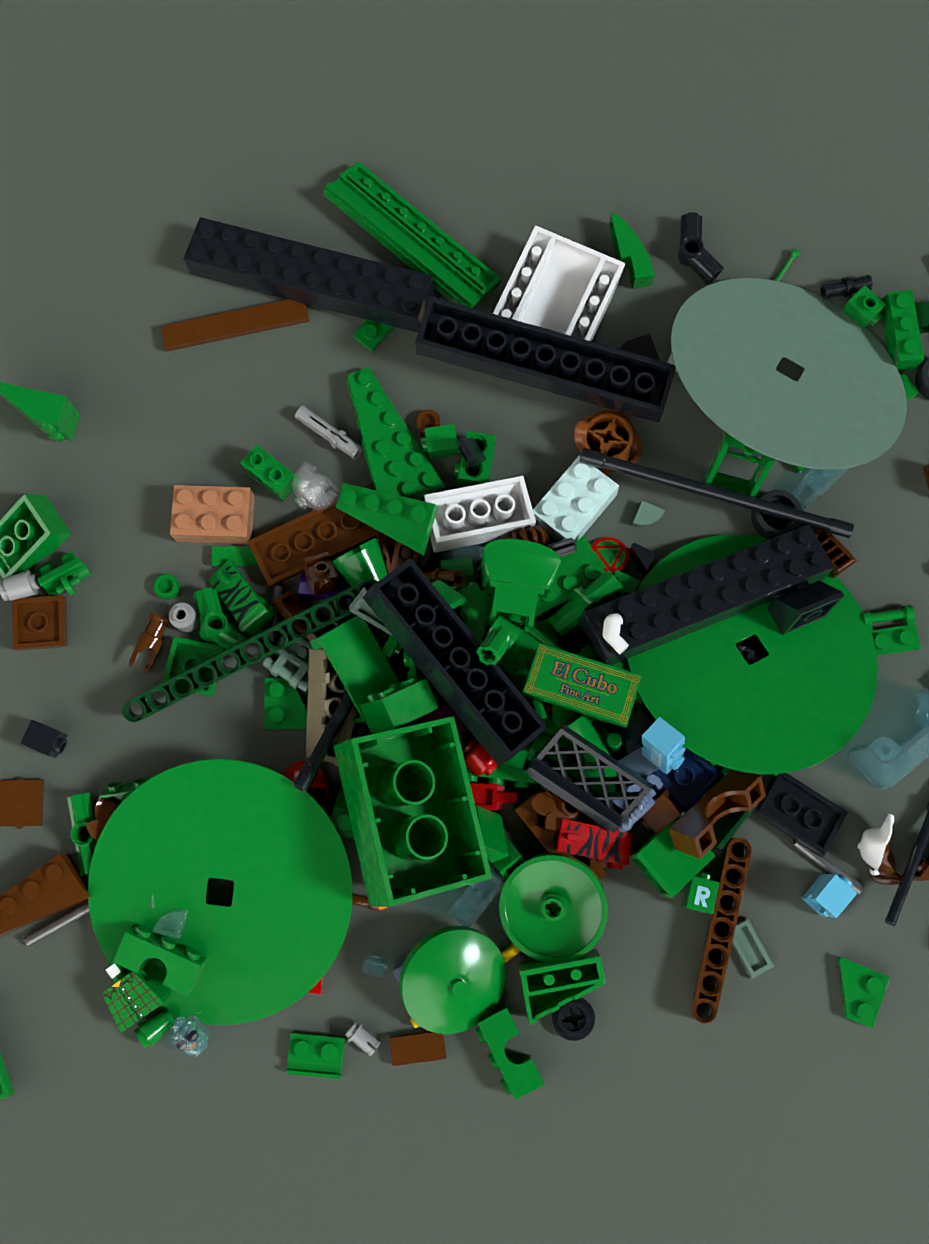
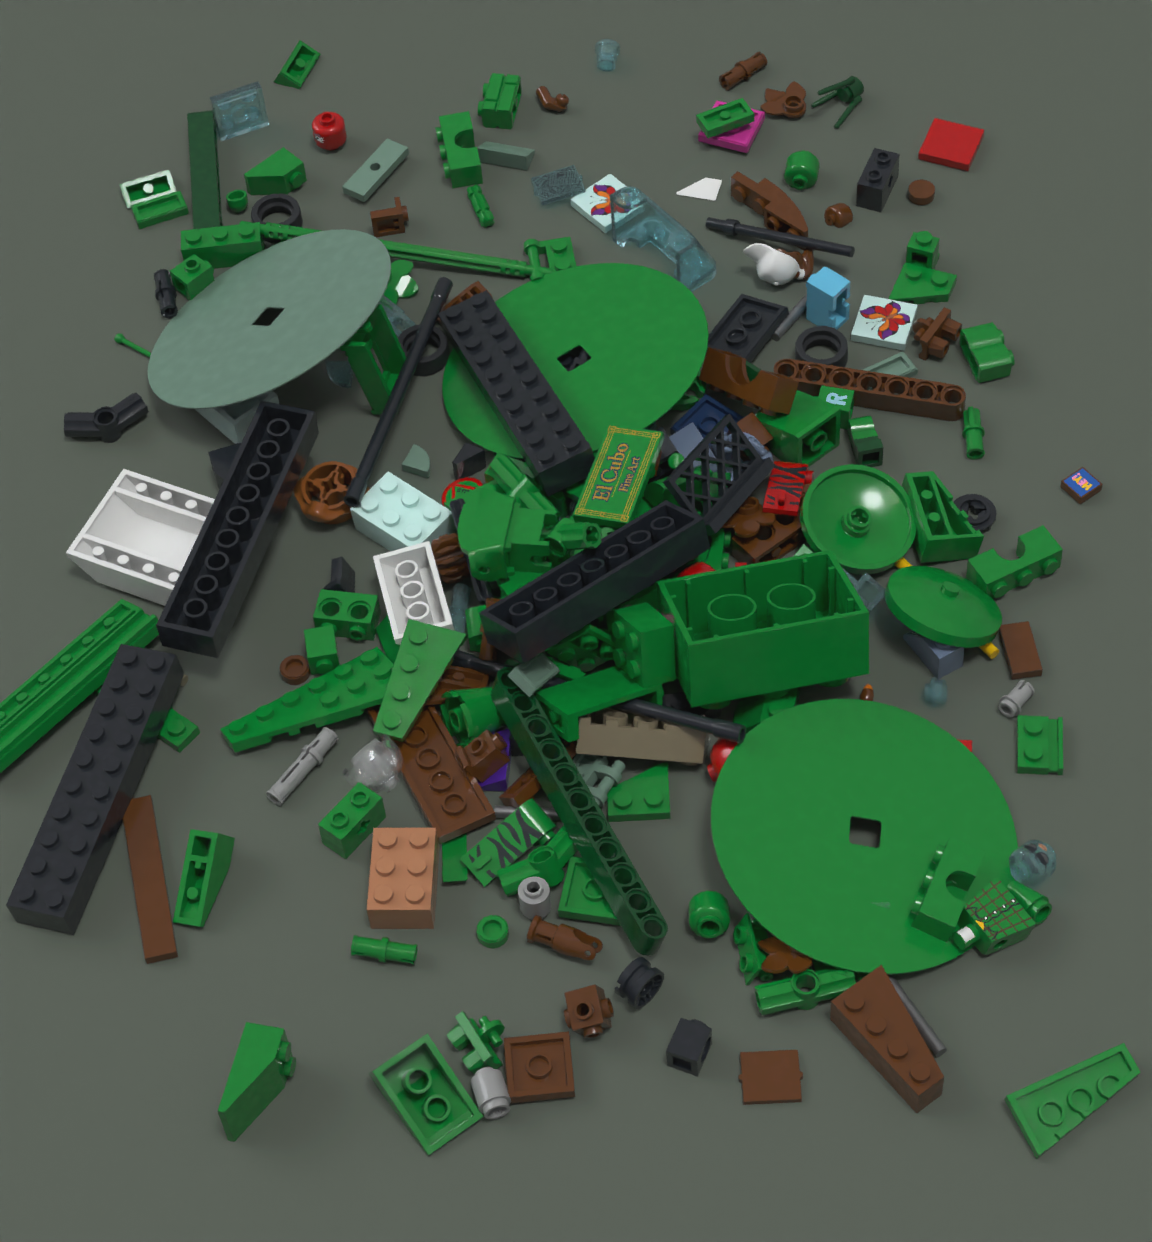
camera: 85 degrees left, 25 degrees down
(78, 659) = (588, 1011): none -> reddish brown brick
(100, 700) = (639, 982): none -> black wheel
(153, 503) = (384, 950): none -> green pin
(160, 757) = (709, 914): none -> green head
(171, 923) = (904, 880): clear light blue tile -> none
(230, 362) = (202, 875): none -> green slope
(470, 451) = (342, 608): black slope -> none
(512, 454) = (341, 576): none -> black tile
(605, 1127) = (1081, 485): none -> tile
(611, 632) = (564, 439): white arm -> none
(631, 252) = (96, 479): green slope -> none
(660, 921) = (865, 441): none -> leg
(663, 746) = (682, 418): medium azure brick -> none
(670, 1027) = (973, 433): none -> green axle
(769, 1050) = (986, 352): none -> green brick
(779, 996) = (931, 334): none -> reddish brown hips
(791, 884) = (822, 336): none -> black tyre
(803, 605) = (527, 312): black slope -> none
(812, 950) = (884, 322): none -> light aqua tile
(859, 489) = (400, 283): none -> green plate
(897, 490) = (420, 253): none -> green axle
(902, 997) = (925, 246): none -> green brick

